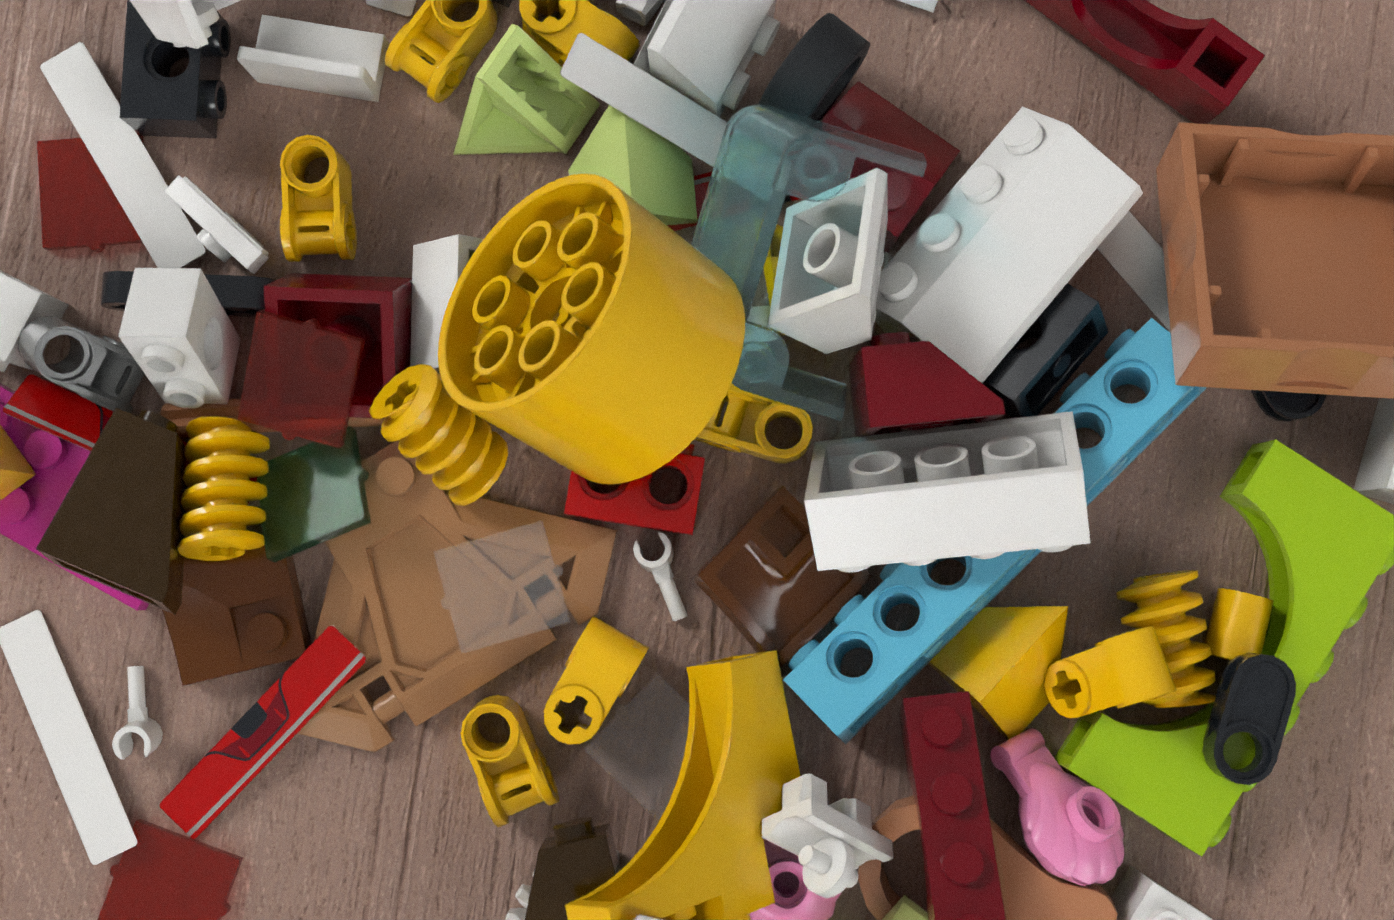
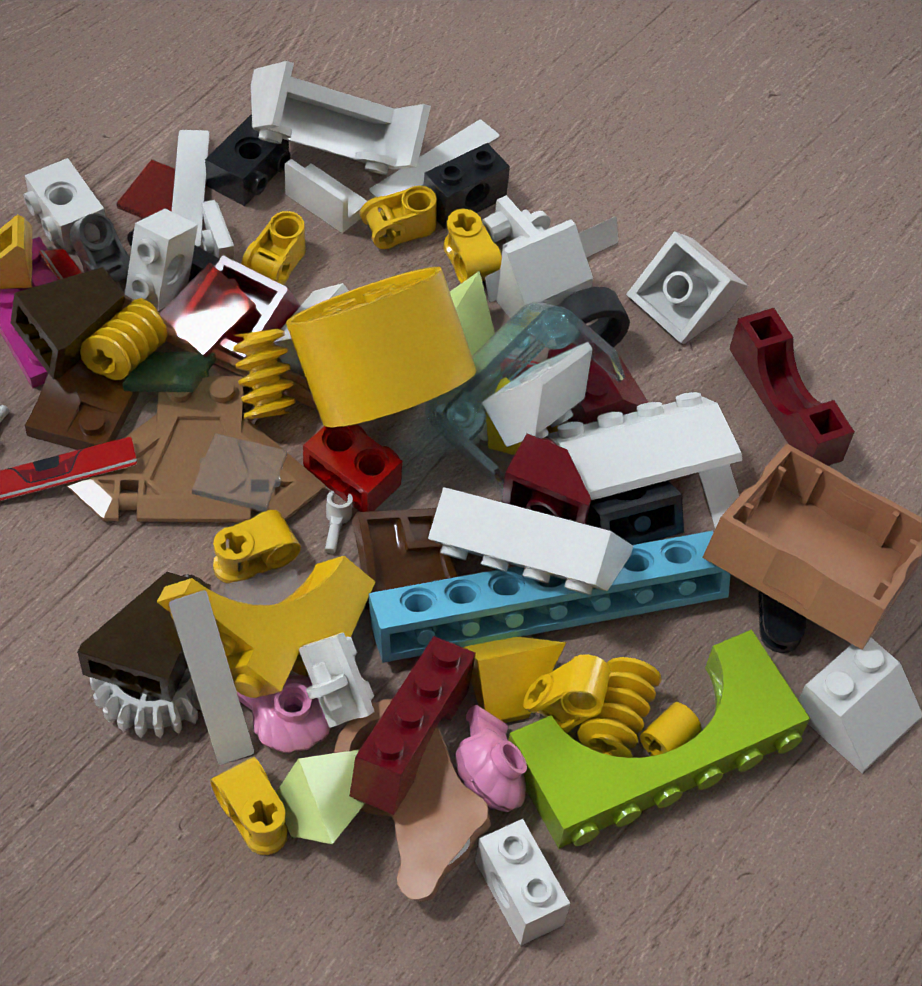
camera: 25 degrees right, 30 degrees down
(508, 763) = (175, 555): yellow piece -> none
(522, 102) = (418, 247): yellowish green slope -> none
(644, 98) = (487, 284): white sticker -> none
(745, 427) = (438, 466): yellow piece -> none
(1251, 699) = (649, 752): black piece -> none

